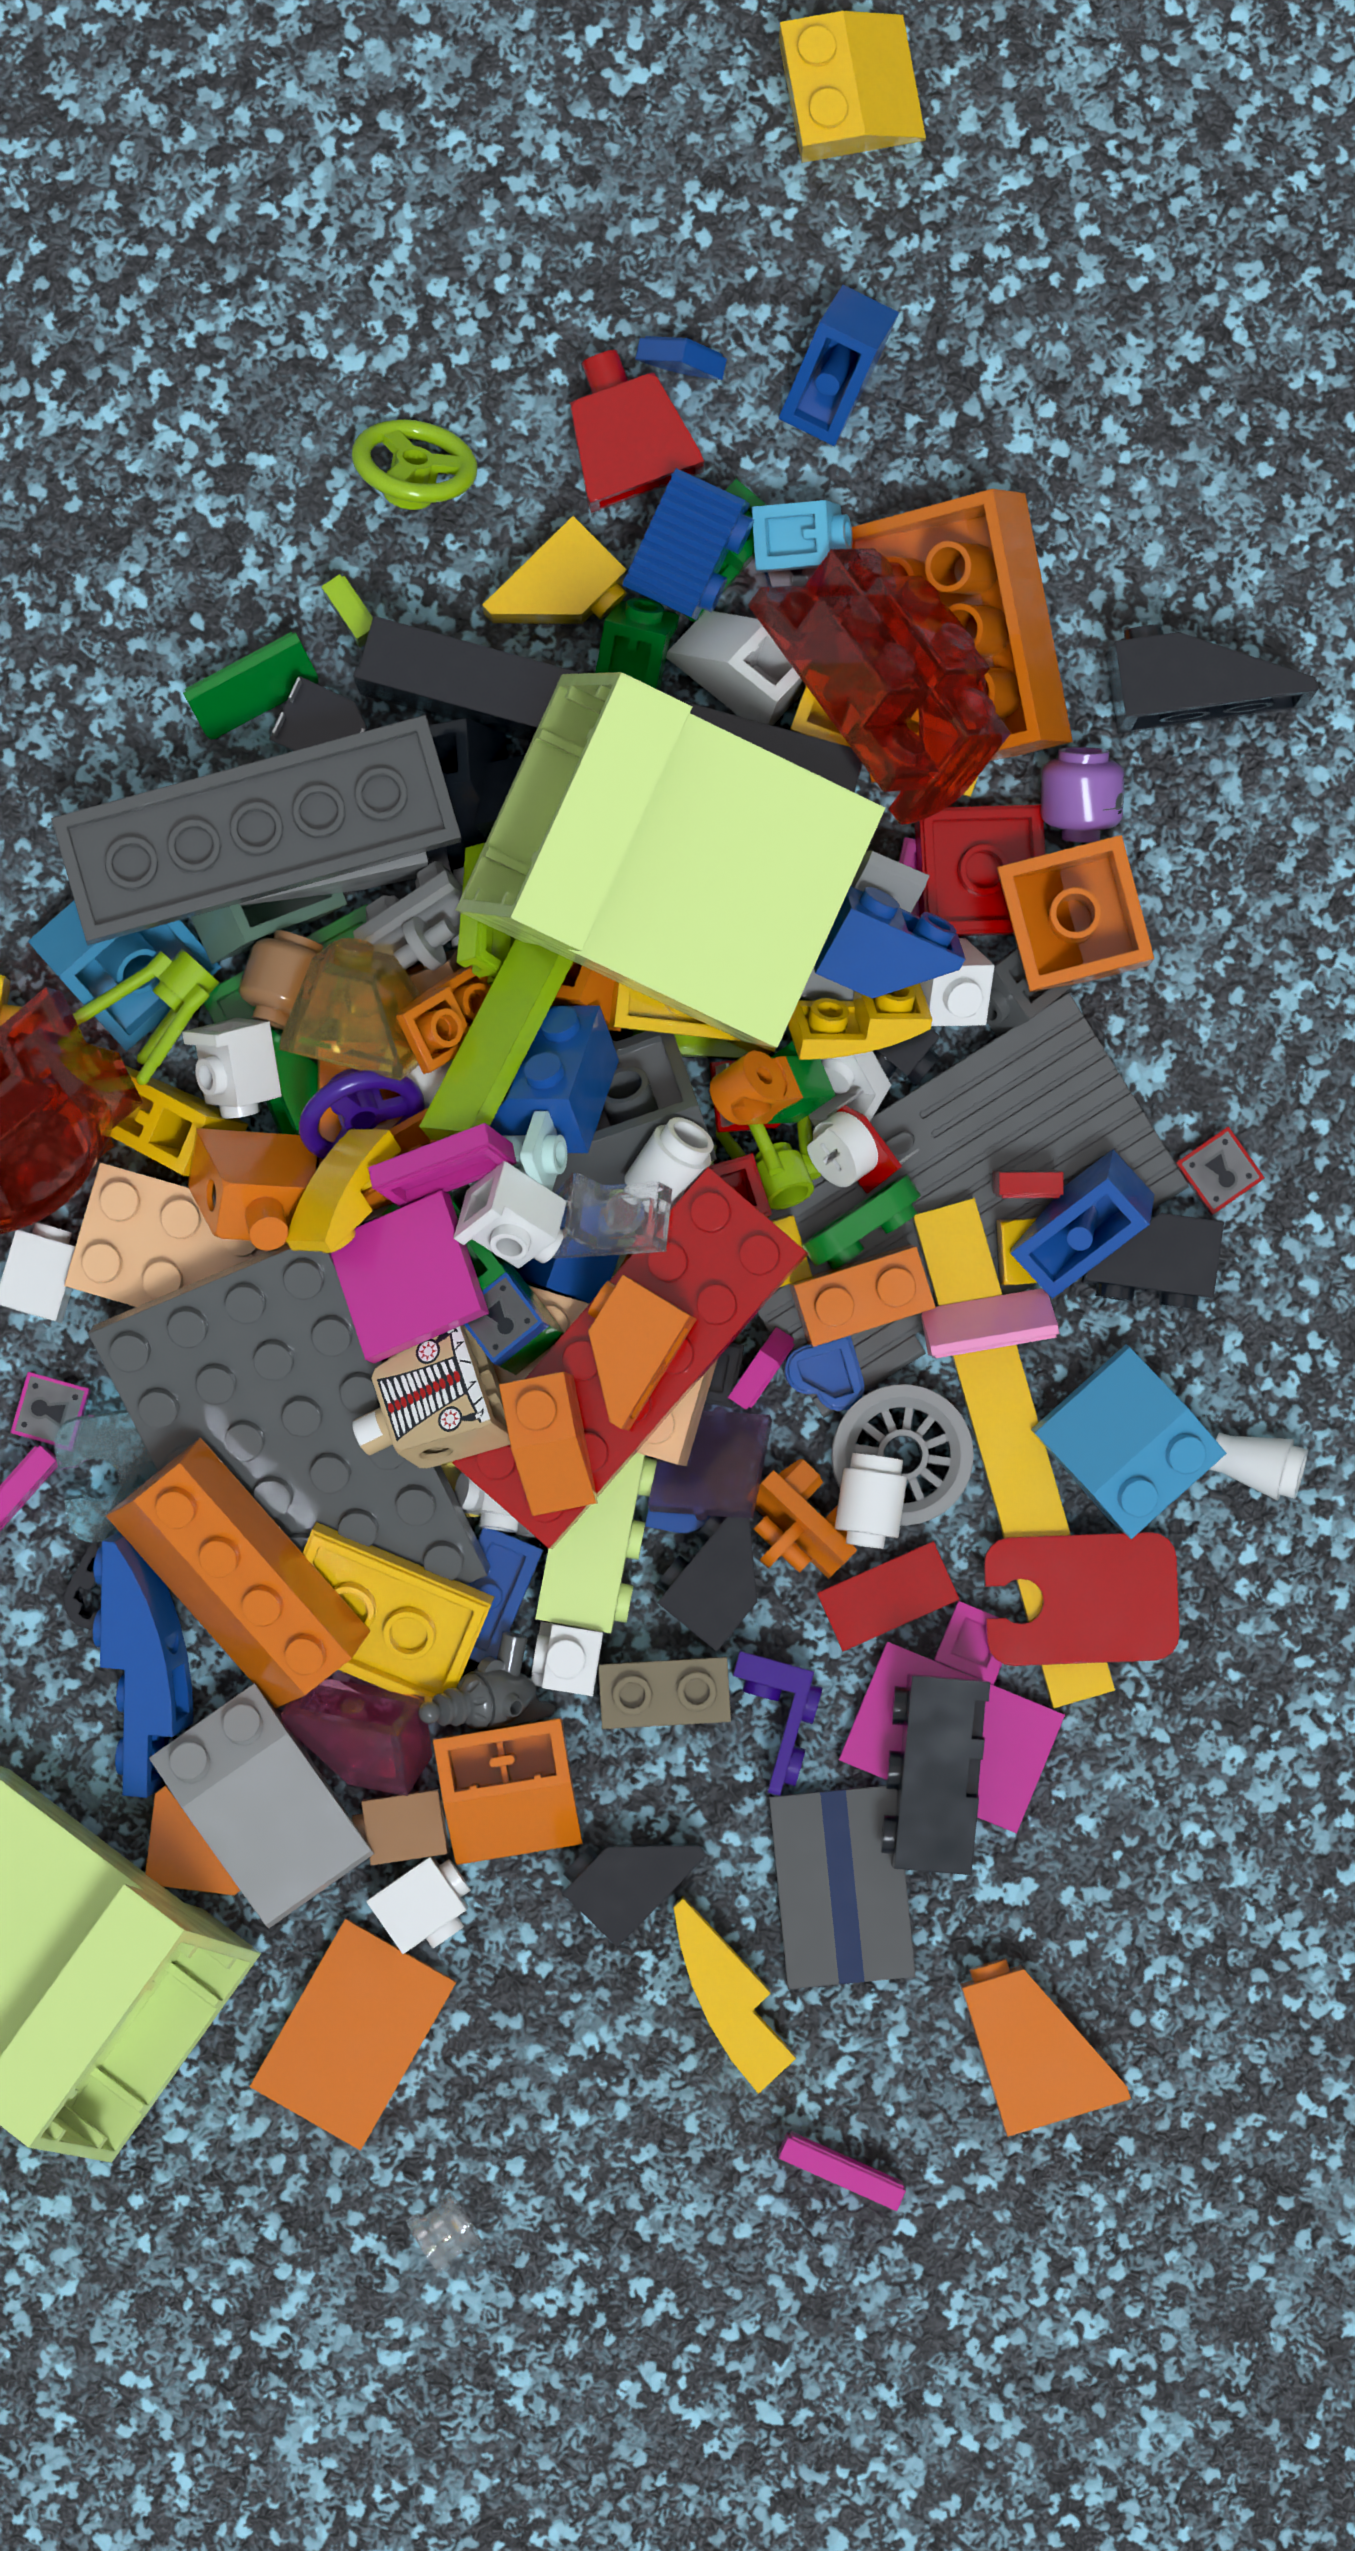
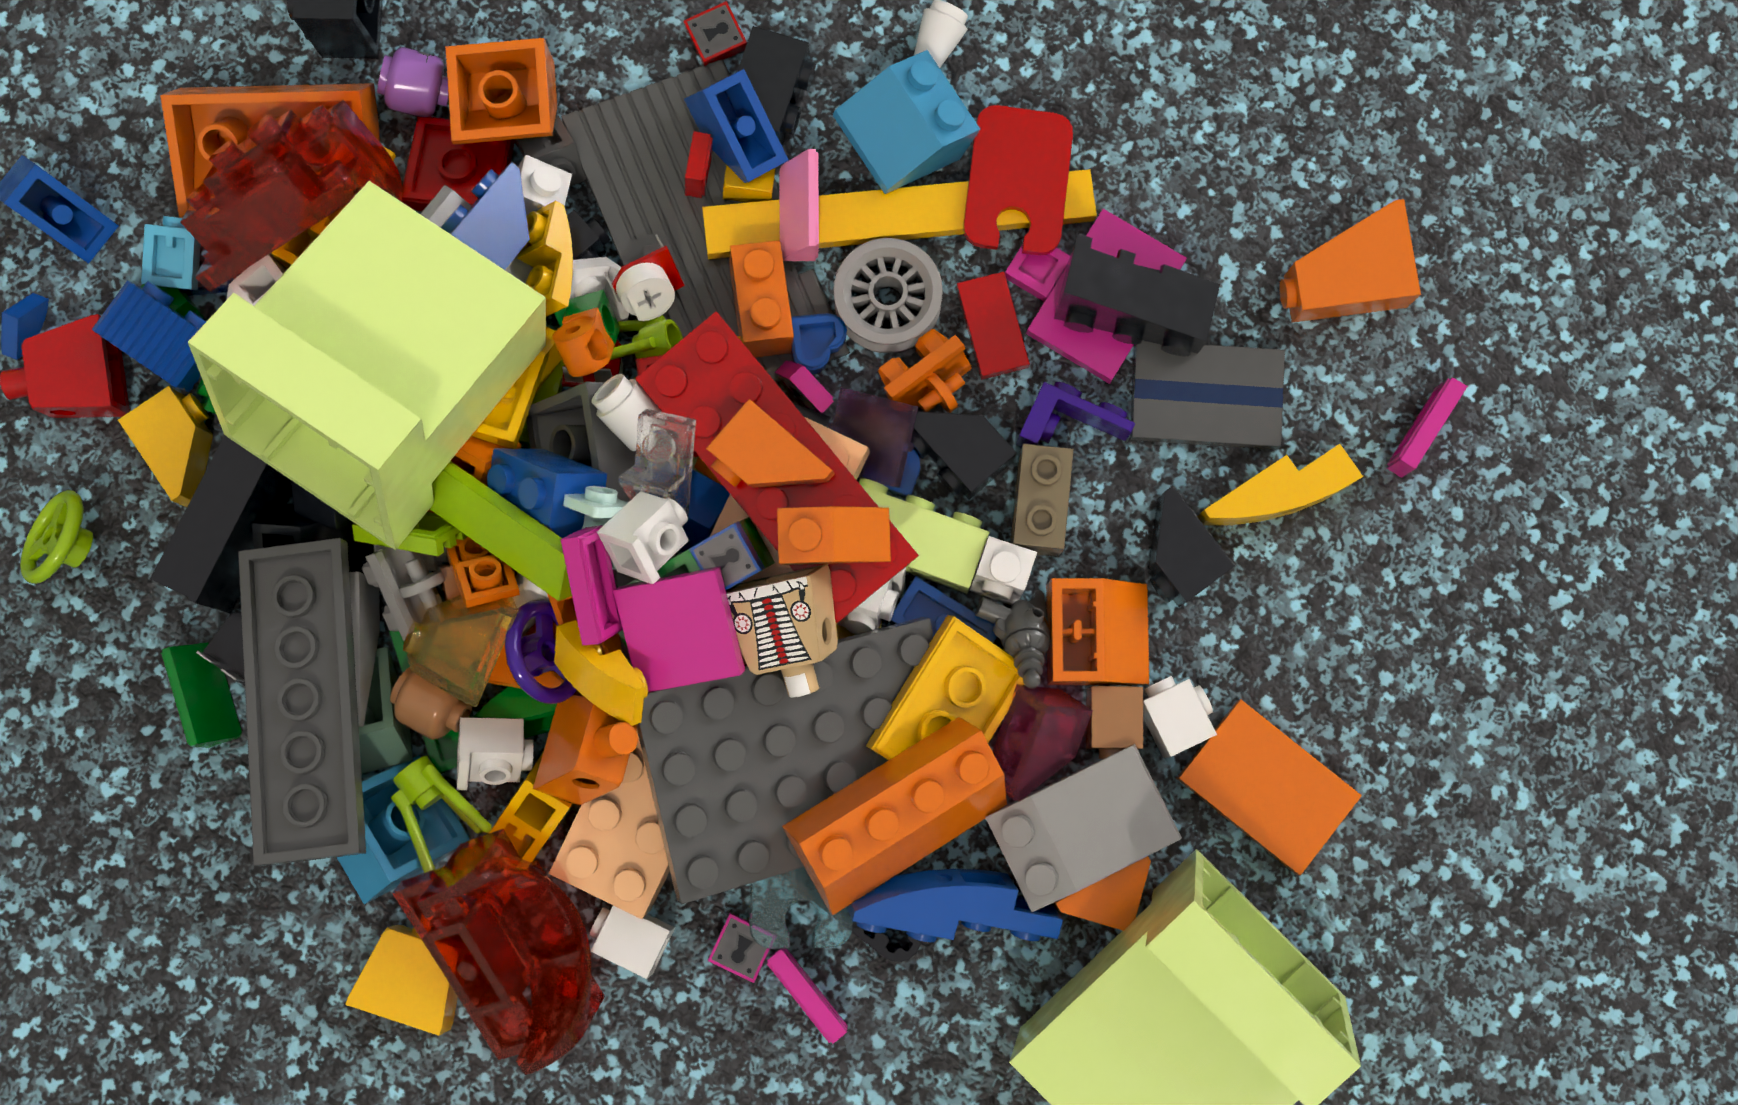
camera: 80 degrees left, 5 degrees down
(348, 608) = (157, 607): lime tile -> none
(445, 2232) = (1435, 739): clear wheel -> none
(871, 1500) = (919, 314): white brick -> none
(886, 1208) = (697, 271): green plate -> none

